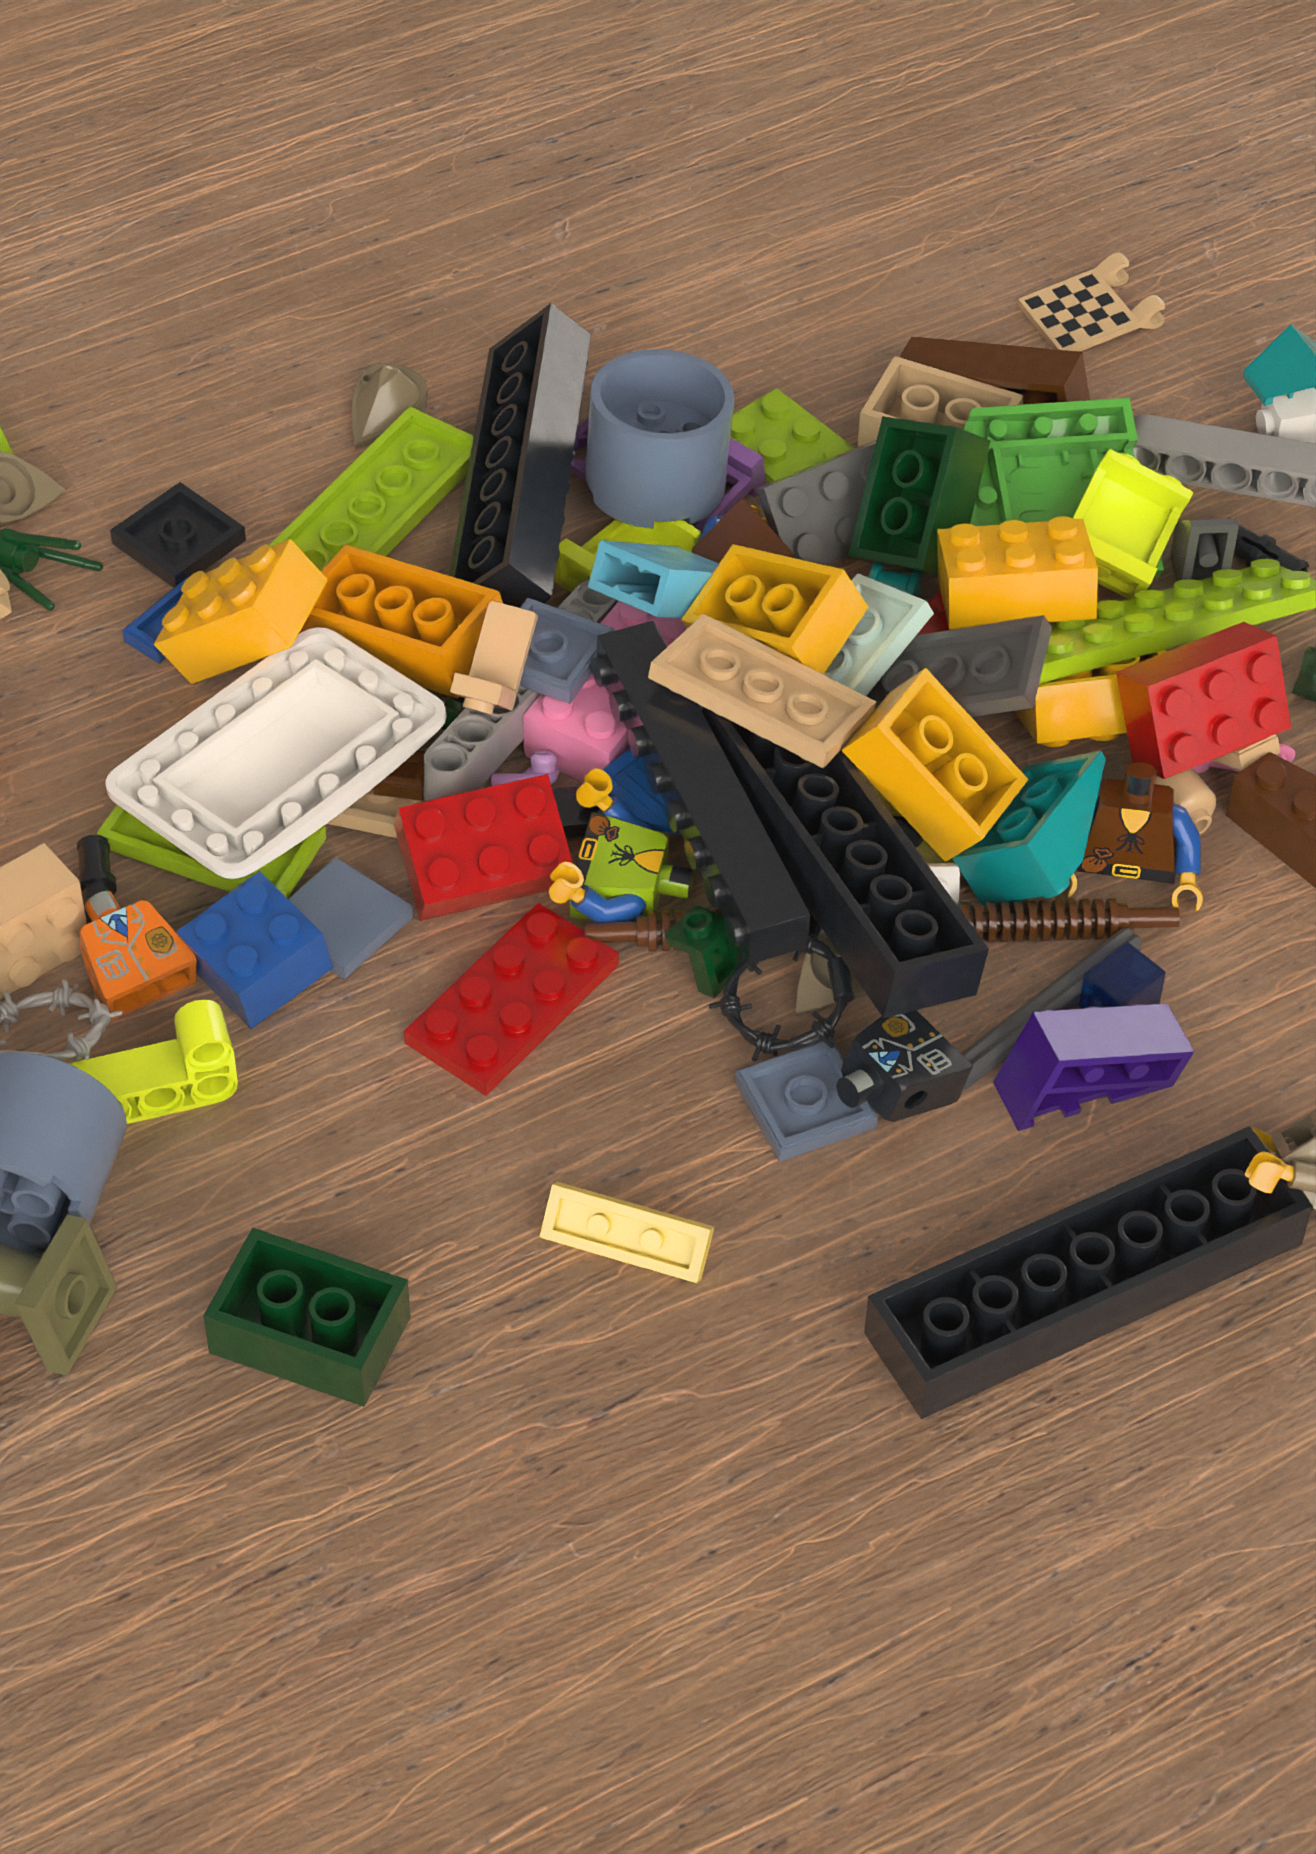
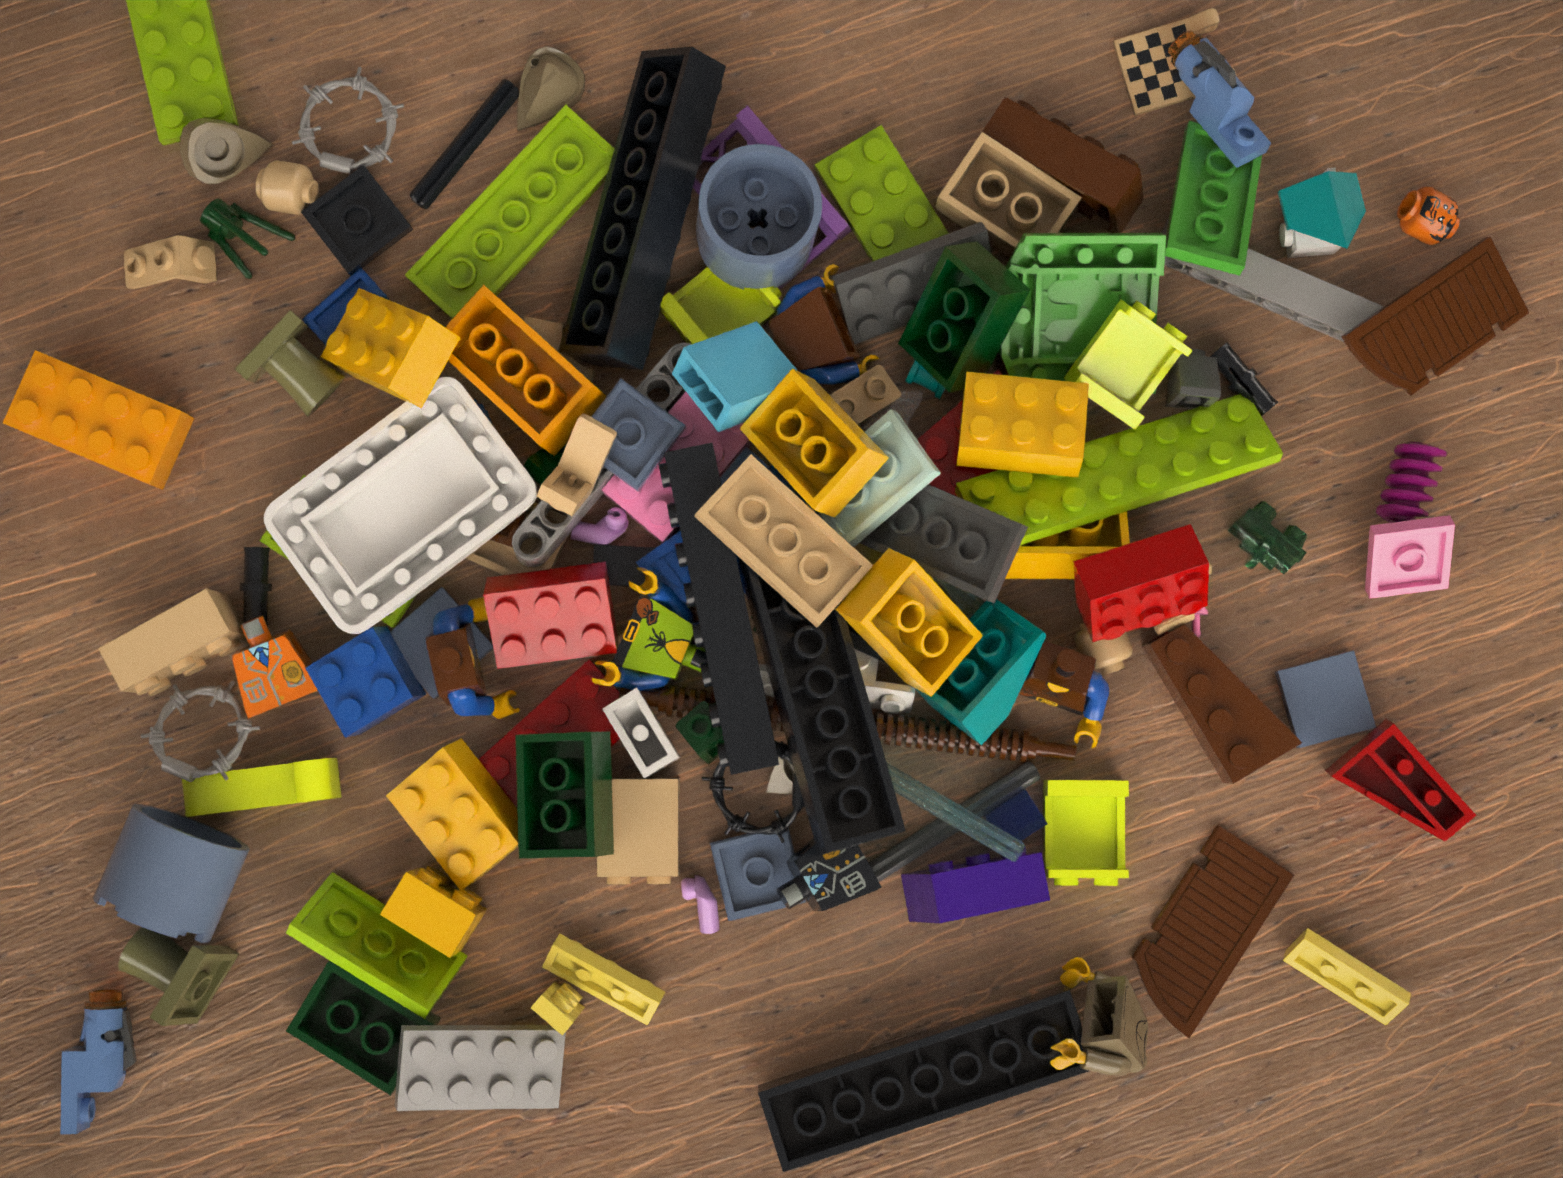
camera: 10 degrees right, 35 degrees up
(89, 512) = (286, 187): none -> tan head
(103, 646) = (291, 365): none -> olive plant
(150, 488) = (338, 162): none -> light grey piece
(295, 461) = (464, 144): none -> black axle
(312, 1221) = (351, 933): none -> lime plate
(375, 912) = (457, 663): none -> torso
(385, 1168) = (434, 910): none -> yellow brick
(403, 1065) = (458, 813): none -> yellow brick
(478, 1334) = (479, 1067): none -> light grey plate
(539, 1003) = (564, 795): none -> dark green brick
(576, 1231) = (559, 1006): none -> light yellow plate
(625, 954) = (641, 733): none -> white slope
(640, 1061) = (643, 831): none -> tan panel
(742, 1130) = (706, 903): none -> lavender arm
(1062, 980) = (955, 815): none -> clear light blue axle
(1150, 309) = (1220, 98): none -> medium blue plate
(1173, 390) = (1211, 205): none -> bright green plate
(1217, 986) = (1084, 831): none -> neon yellow panel

